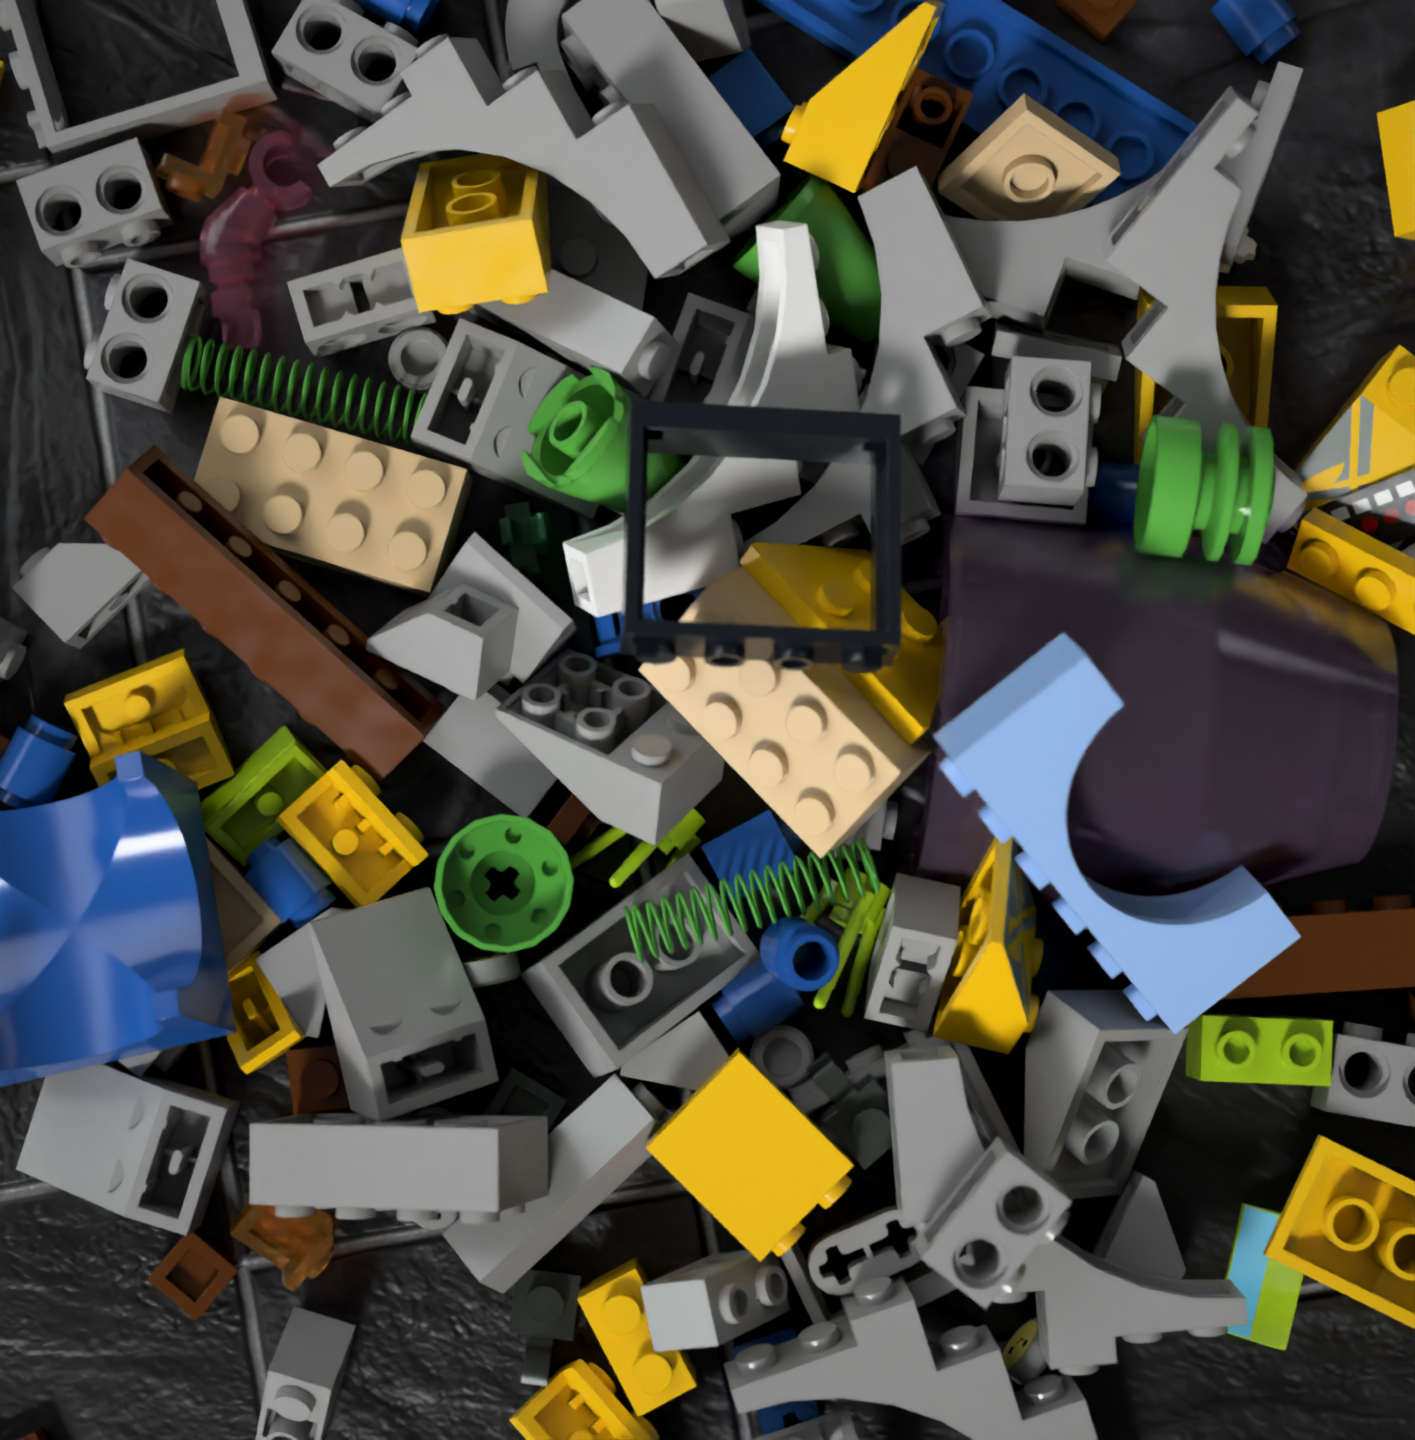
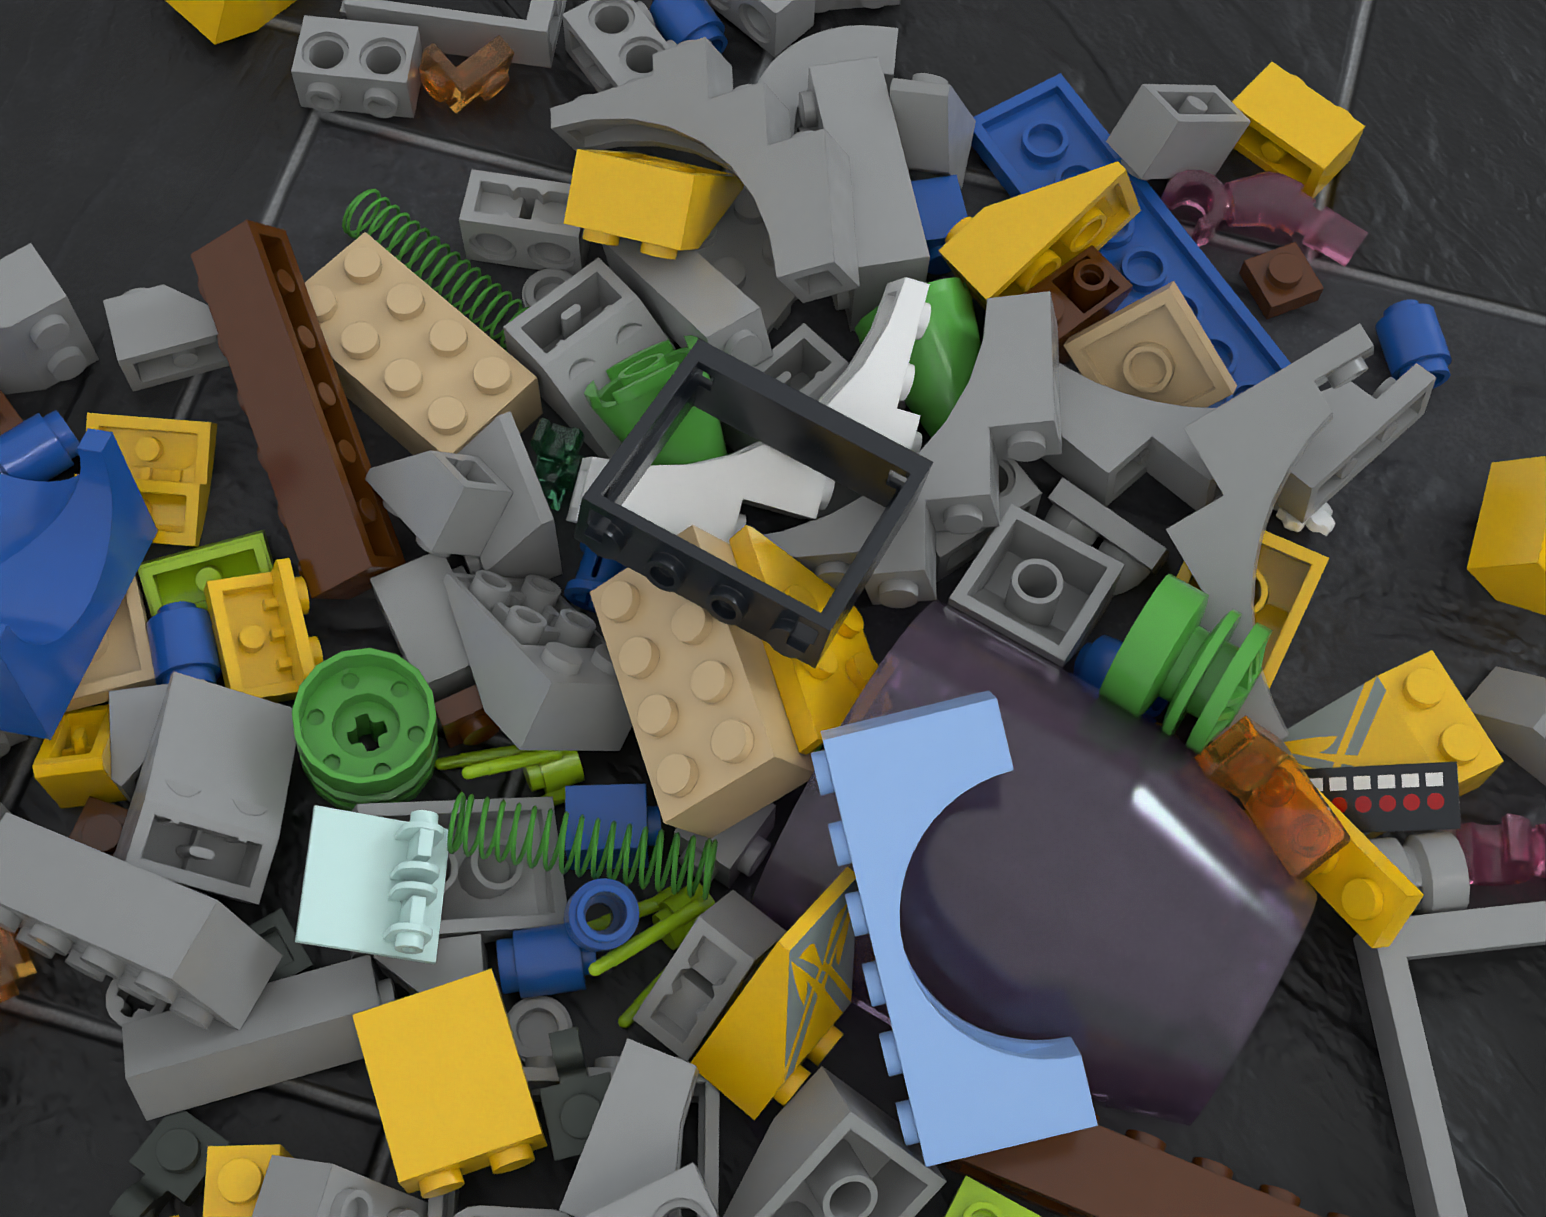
camera: 30 degrees right, 20 degrees down
(161, 337) = (332, 169): light grey brick -> none
(233, 239) = (463, 132): clear pink piece -> none
(492, 968) = (300, 806): light grey tile -> none
(597, 1027) = (374, 884): none -> light aqua hinge
(1032, 429) = (1058, 557): light grey brick -> none
(1328, 563) = (1276, 795): none -> clear orange bracket

